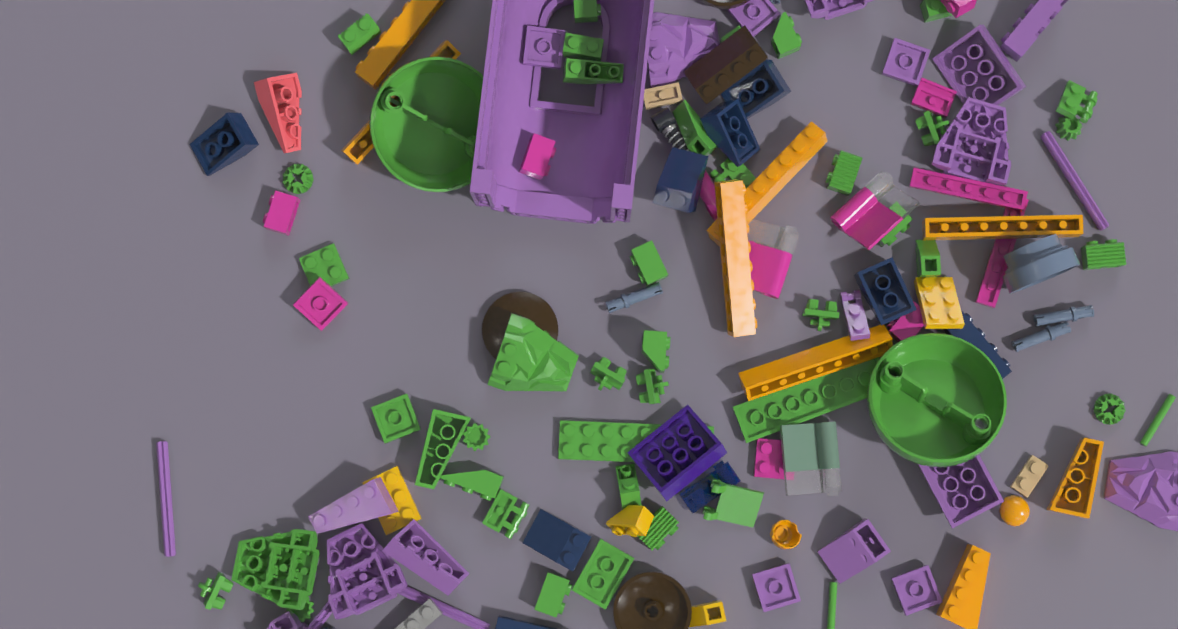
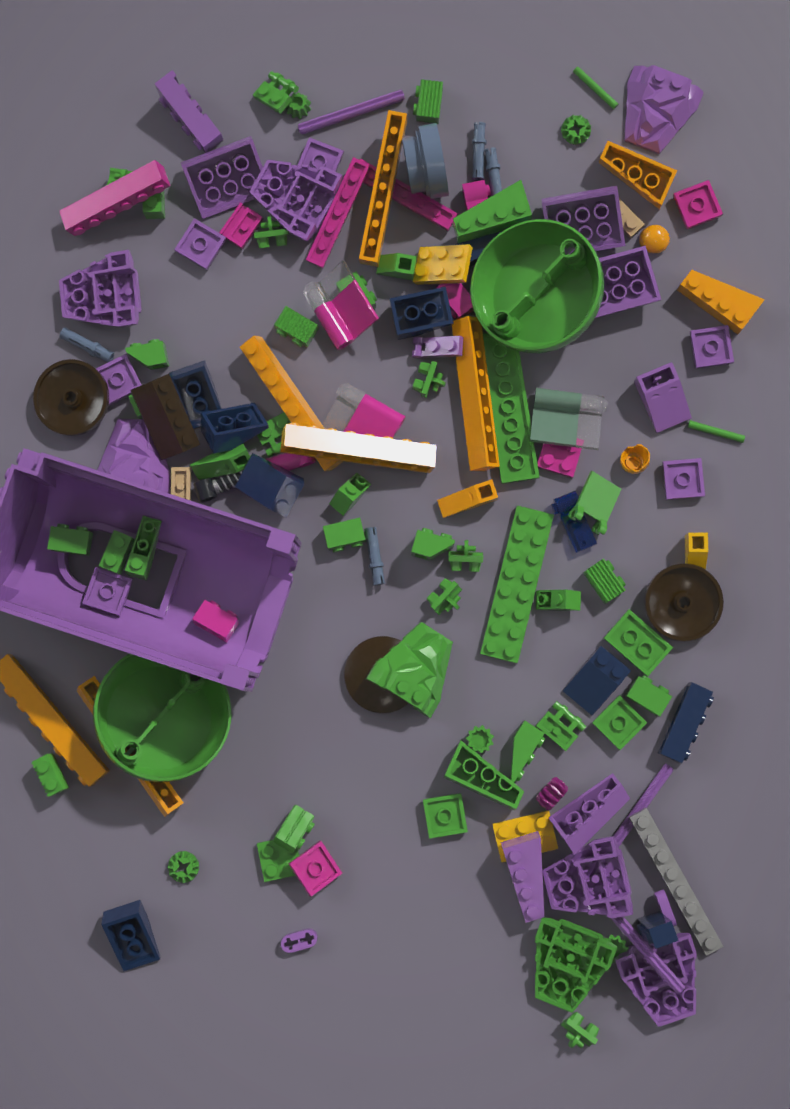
camera: 70 degrees left, 0 degrees up
(165, 498) = (477, 1064): medium lavender axle -> none
(253, 301) = (301, 944): none -> medium lavender beam
(280, 103) = (105, 869): coral wedge -> none
(281, 213) = (215, 890): dark pink brick -> none
(353, 275) = (293, 829): none -> bright green brick
(437, 517) = (551, 793): none -> magenta gear
(520, 570) = (619, 722): none -> bright green plate
(631, 521) = (593, 604): yellow slope -> none
(677, 452) = (535, 545): dark purple slope -> none
(689, 260) = (349, 493): none -> bright green slope
(709, 376) = (468, 498): none -> light orange slope
(1000, 342) = (493, 214): none -> bright green wedge
(1011, 324) = (475, 193): none -> dark pink brick
(1022, 440) = (591, 213): none -> medium lavender slope
(1023, 160) = (321, 154): none -> medium lavender plate
(1060, 547) = (697, 204): none -> dark pink plate

